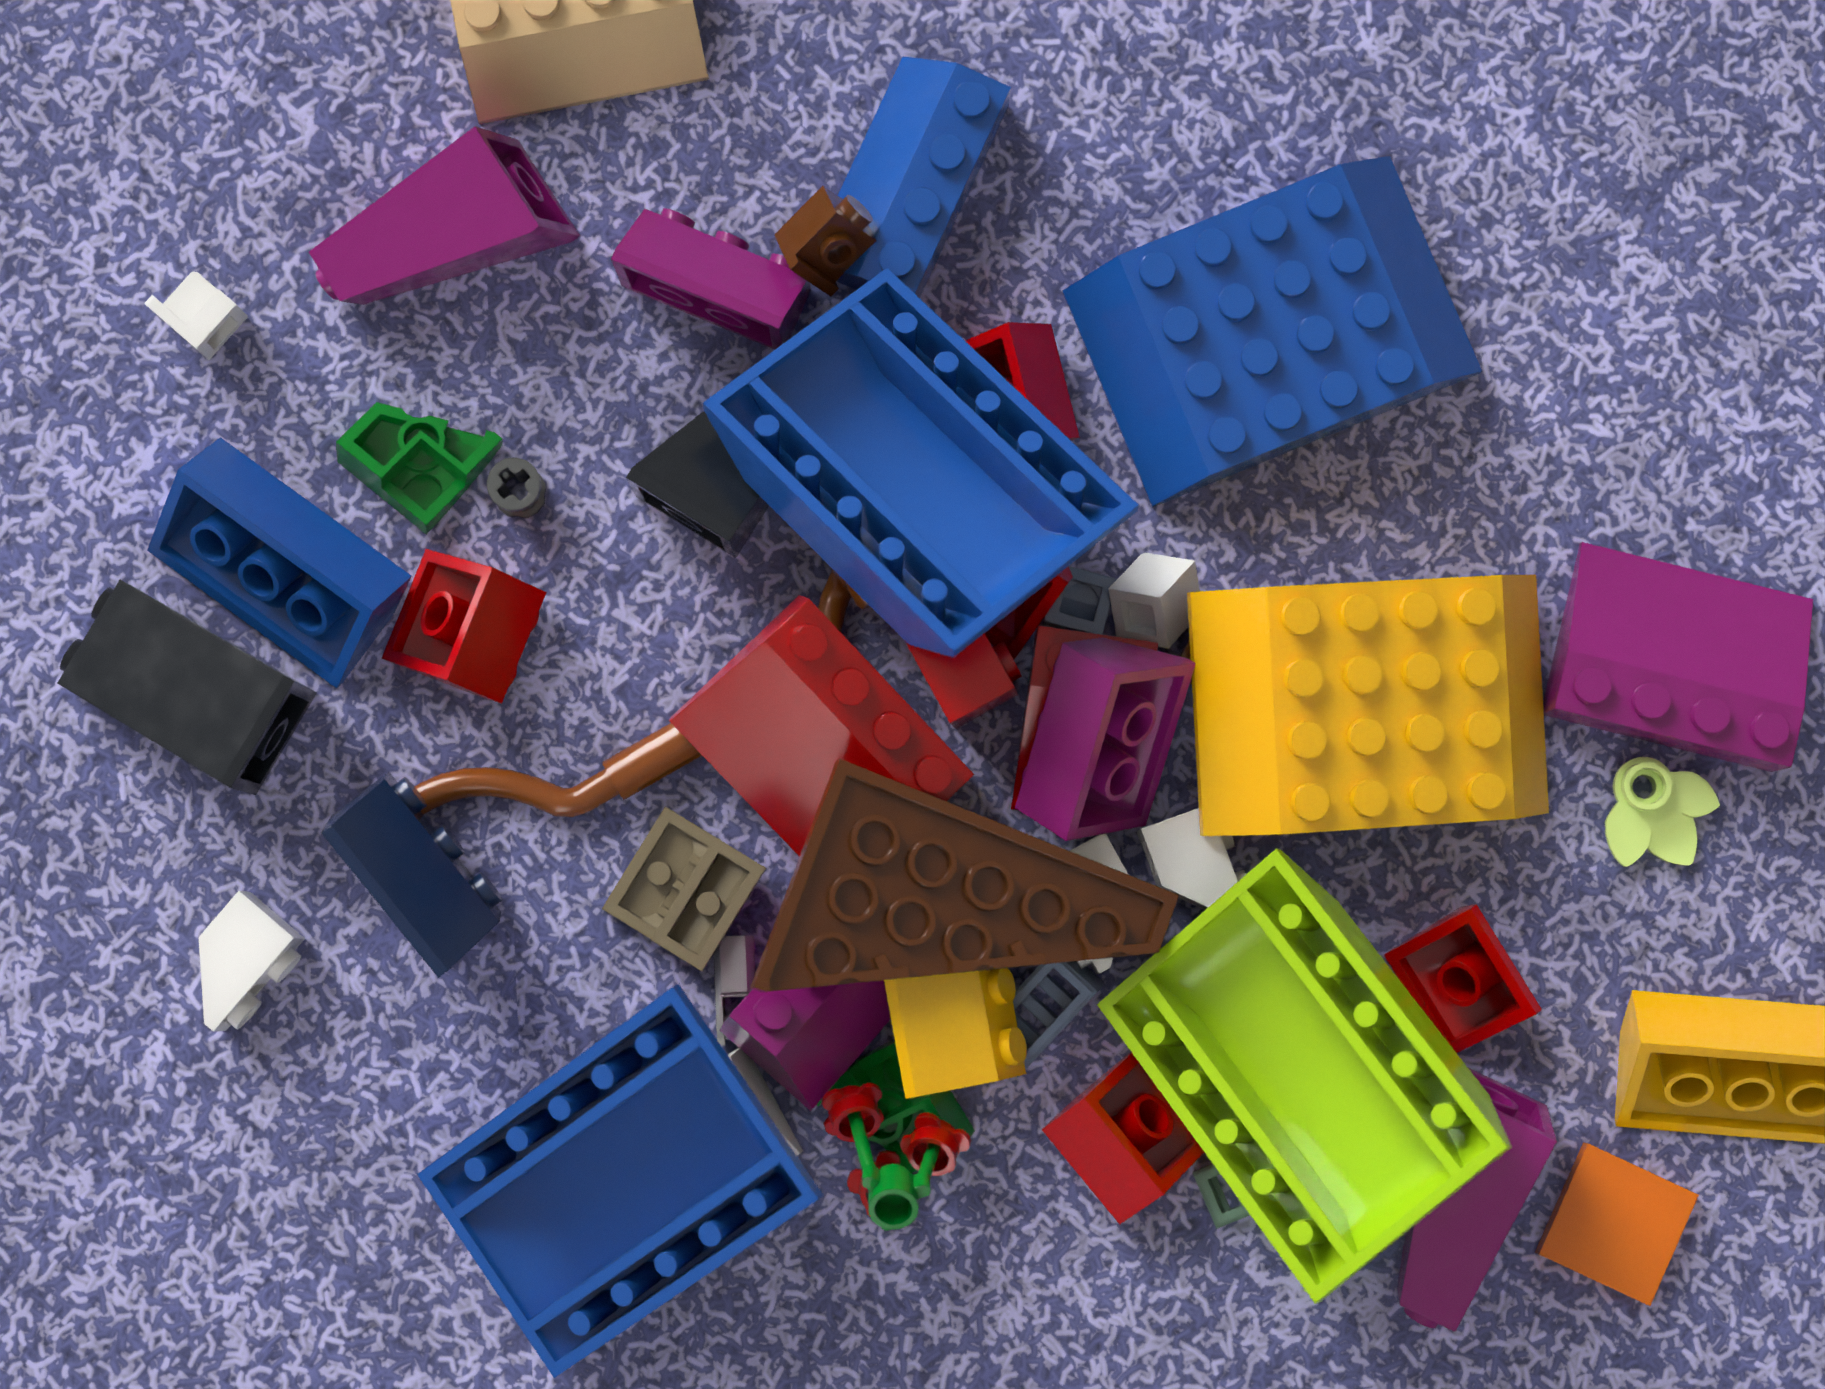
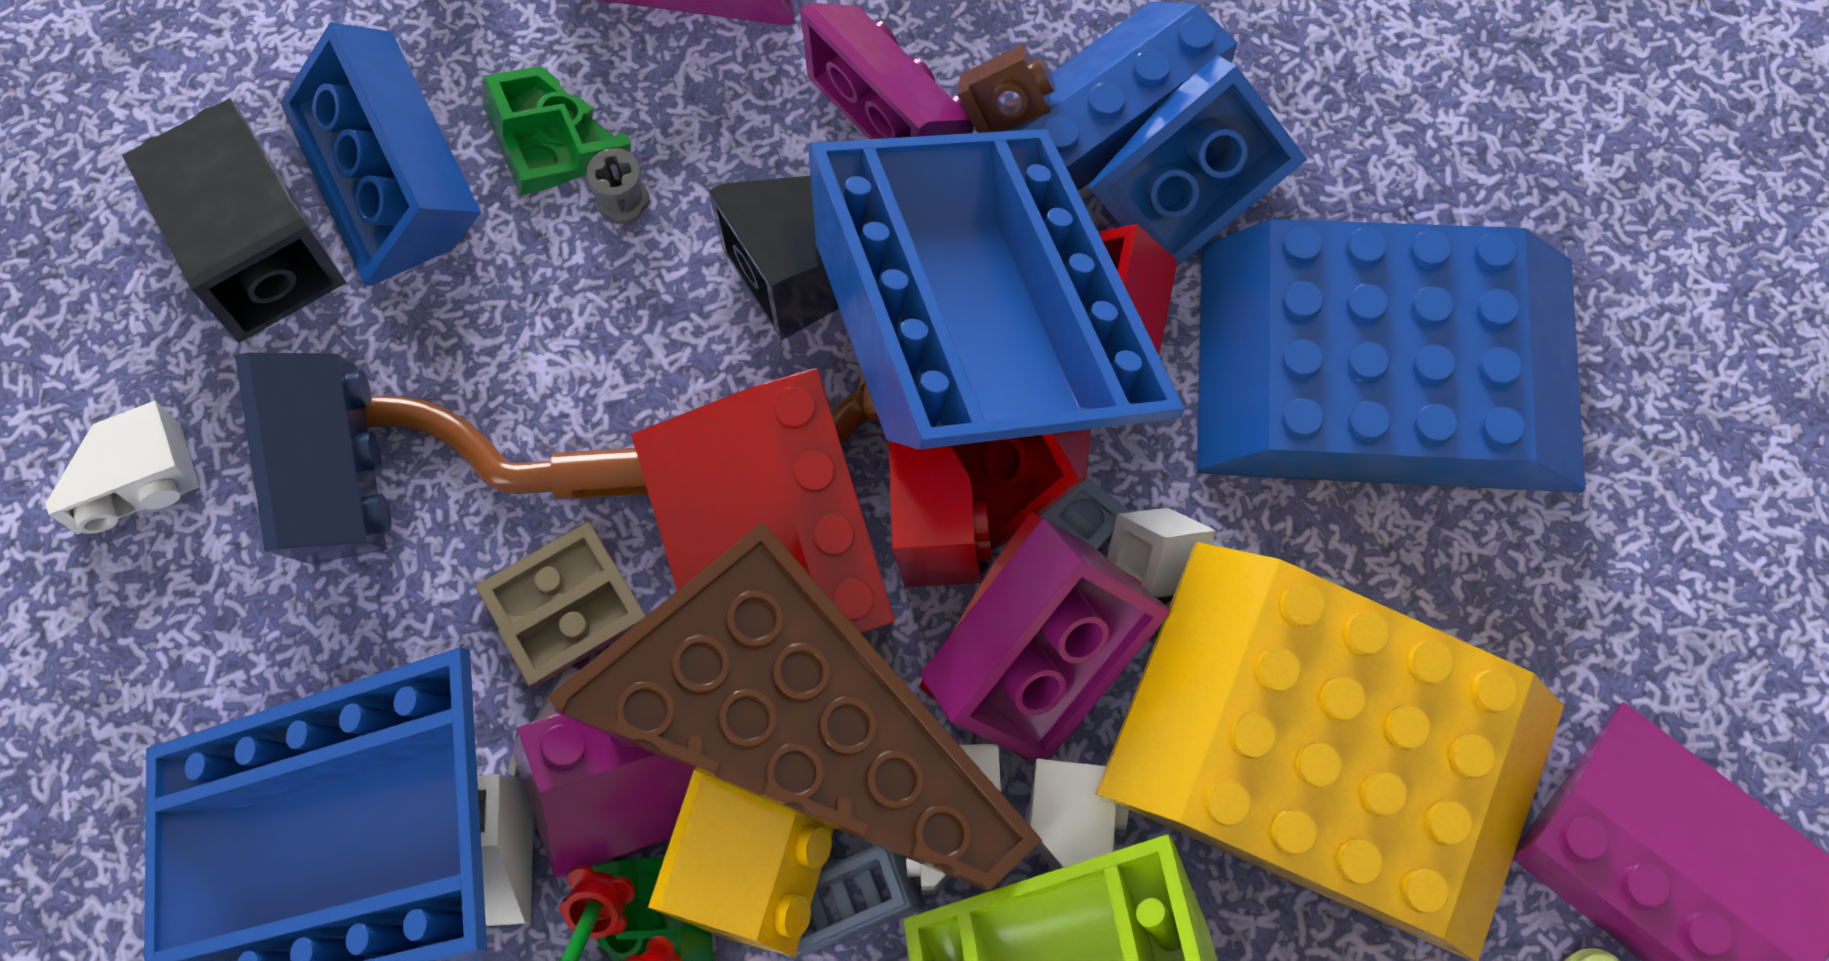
camera: 30 degrees right, 15 degrees down
(464, 625) = (506, 280): red slope -> none
(1027, 224) = (1198, 161): none -> blue slope

